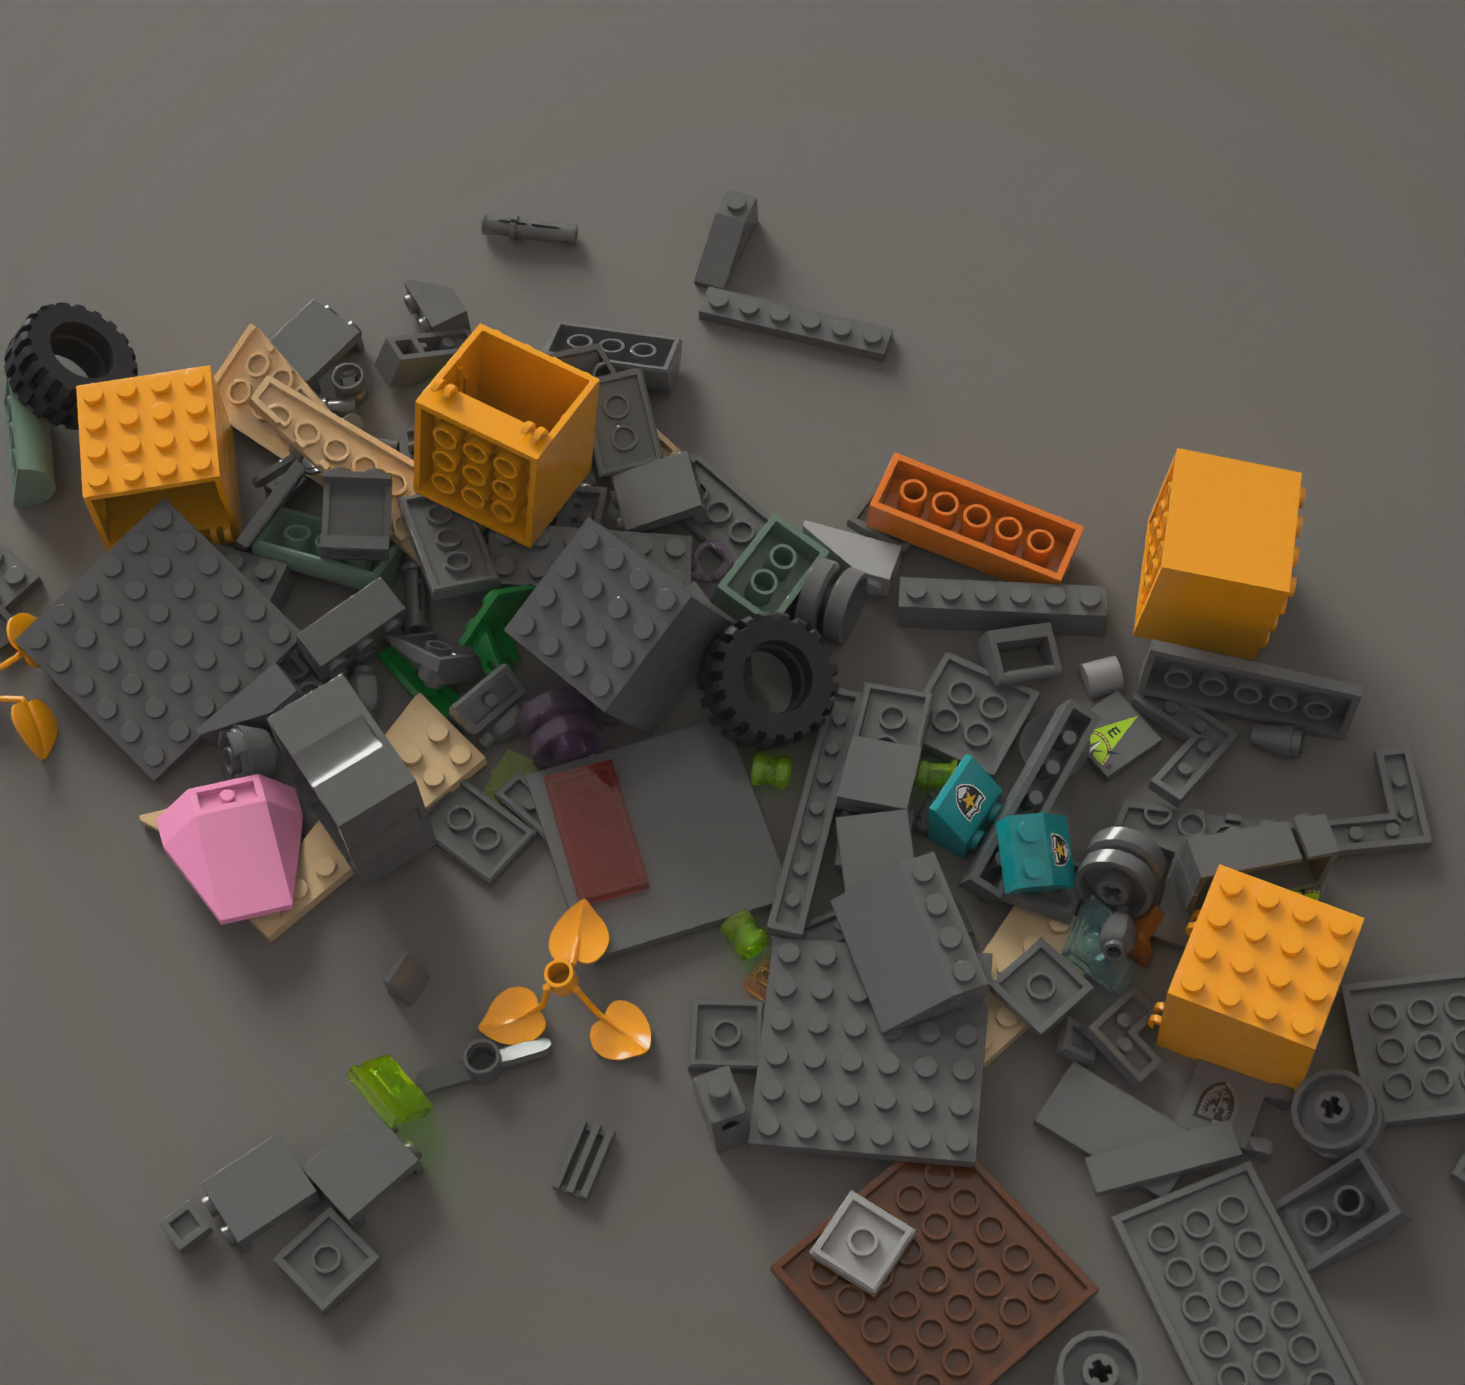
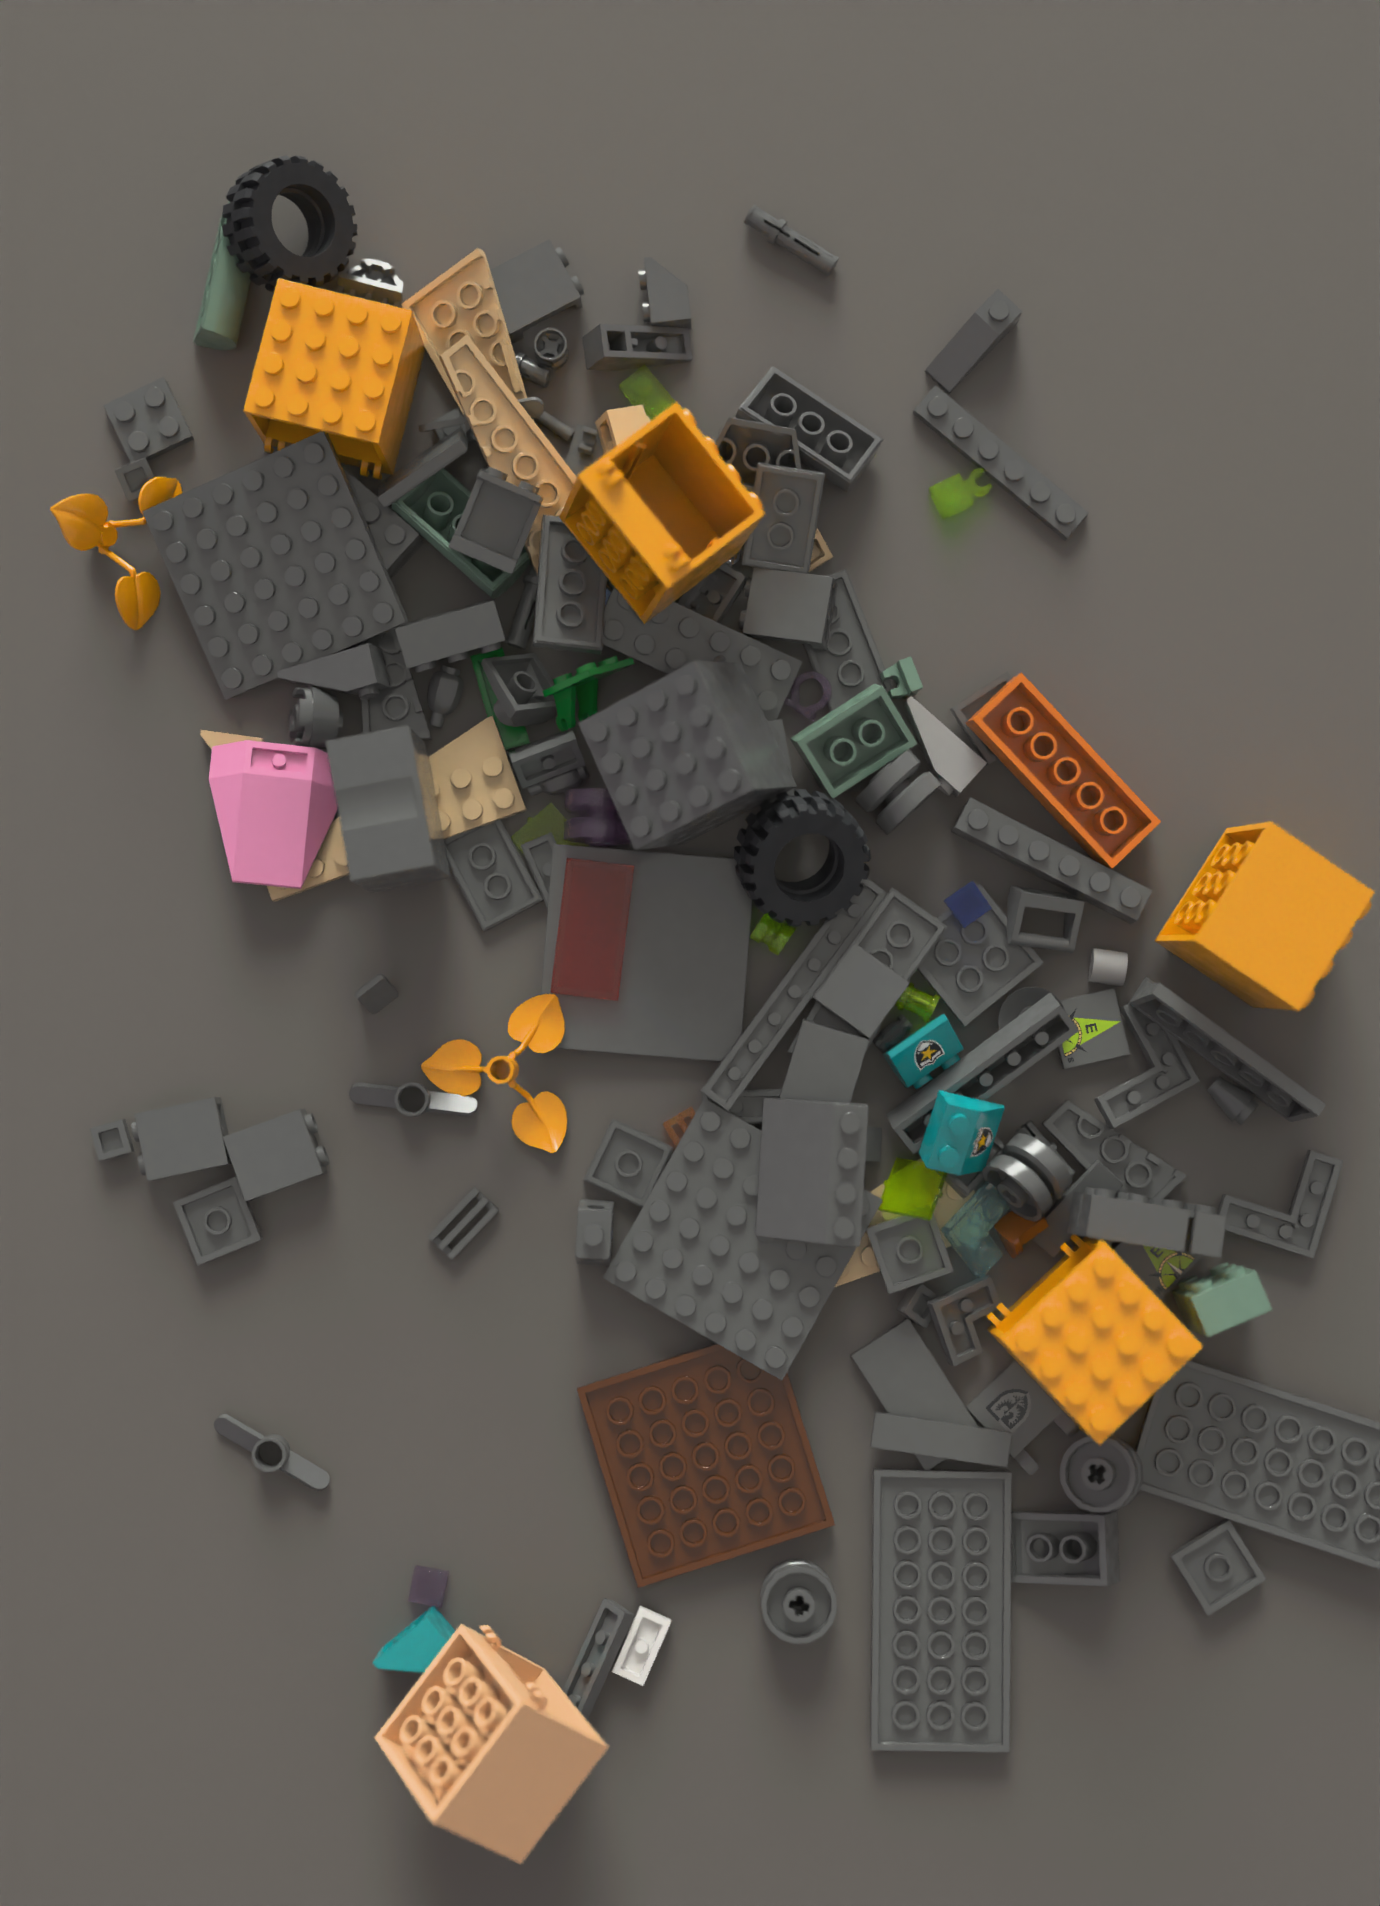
camera: 20 degrees right, 25 degrees up
(389, 1090) = (323, 1094): clear neon green plate -> none
(746, 937) = (682, 1081): clear neon green wheel -> none
(769, 362) = (955, 494): none -> clear neon green plate
(793, 510) = (906, 678): none -> sand green tile
(862, 1243) = (659, 1405): light grey tile -> none
(943, 667) = (967, 904): none -> clear blue plate
(1016, 930) = (912, 1189): none -> clear neon green piece
(1118, 934) = (997, 1234): dark grey plant -> none
(1370, 889) = (1220, 1299): none -> sand green brick

